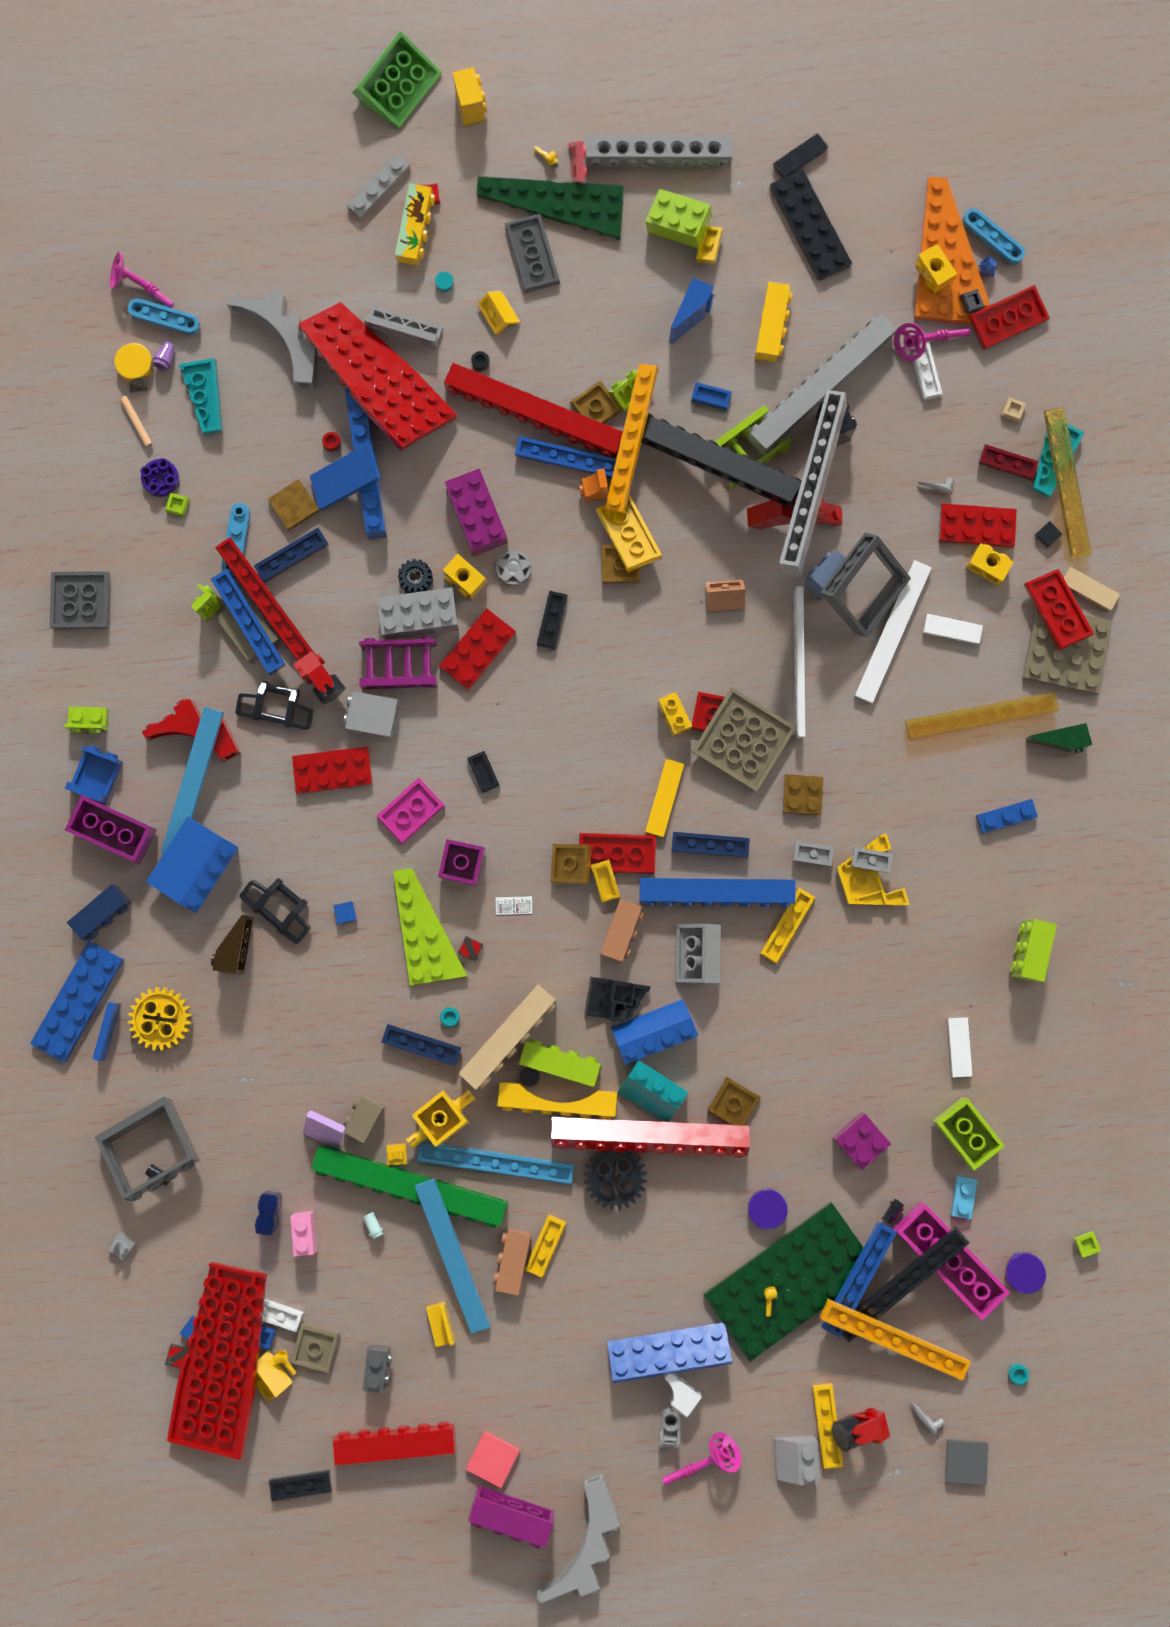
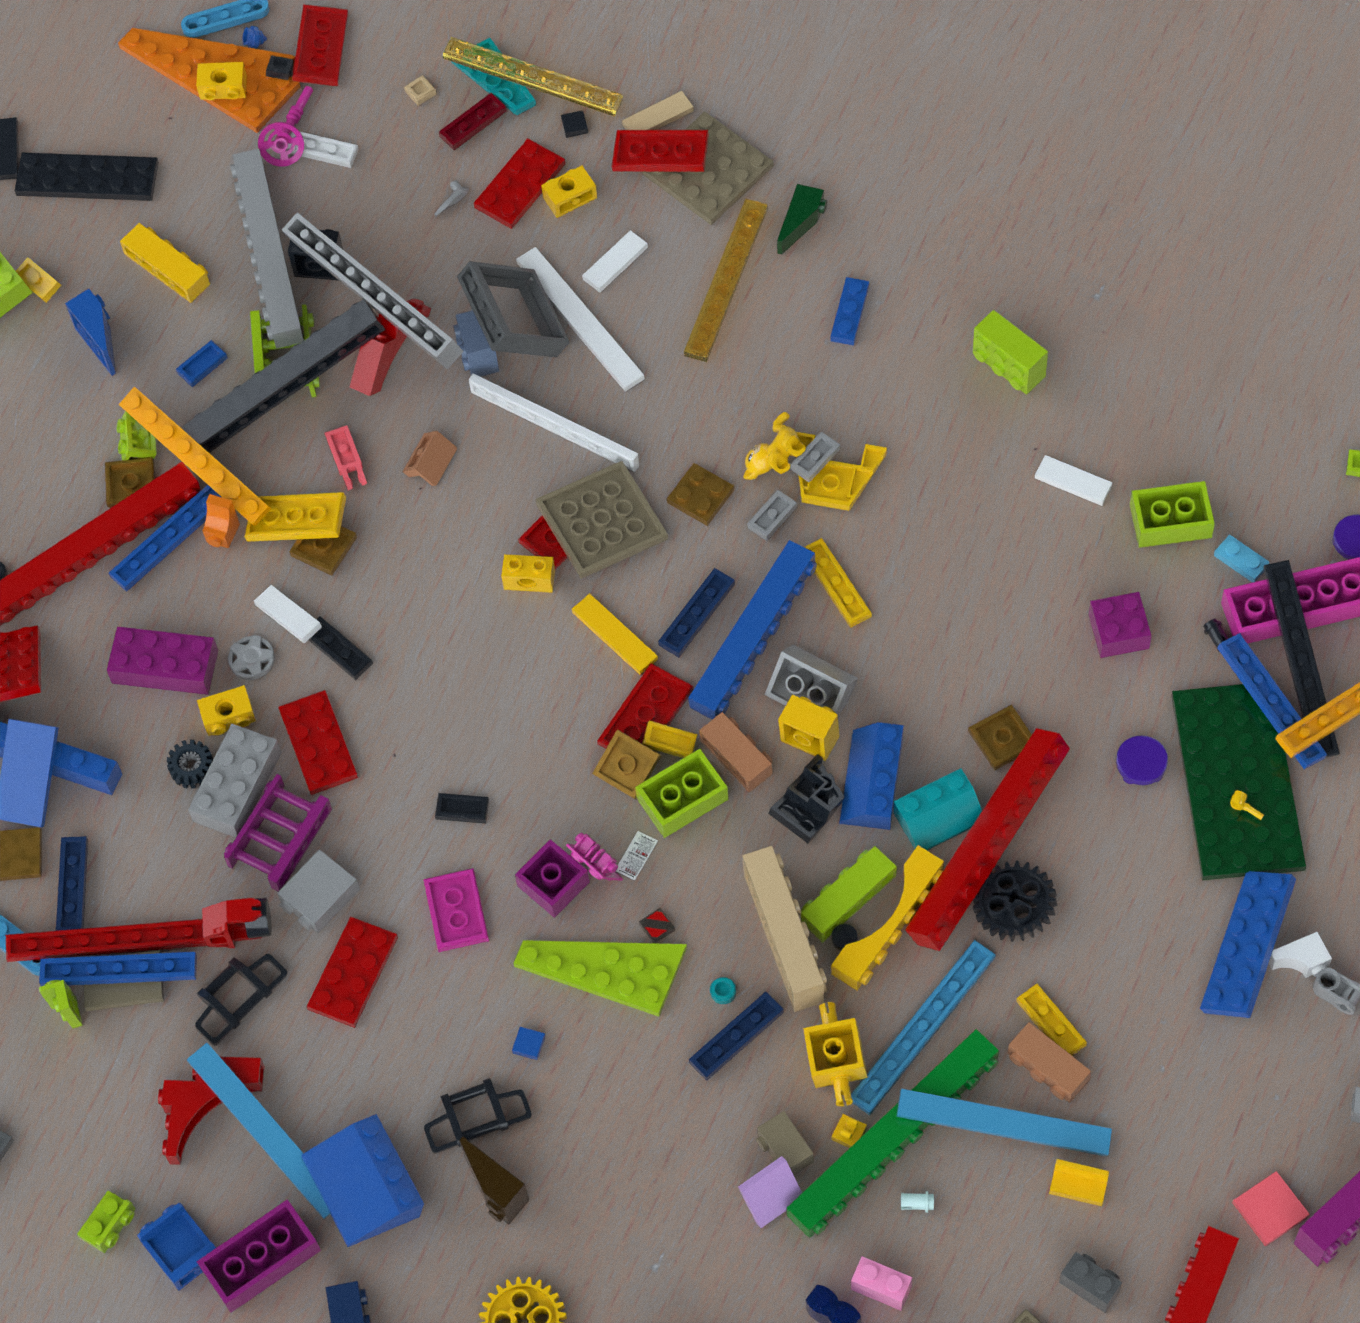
camera: 55 degrees left, 20 degrees down
(487, 884) = (599, 861): none -> dark pink hinge
(556, 572) = (287, 614): none -> white tile
(569, 912) = (682, 793): none -> lime brick
(663, 971) = (809, 726): none -> yellow brick
(695, 537) = (345, 455): none -> coral hinge
(856, 831) = (774, 455): none -> yellow animal

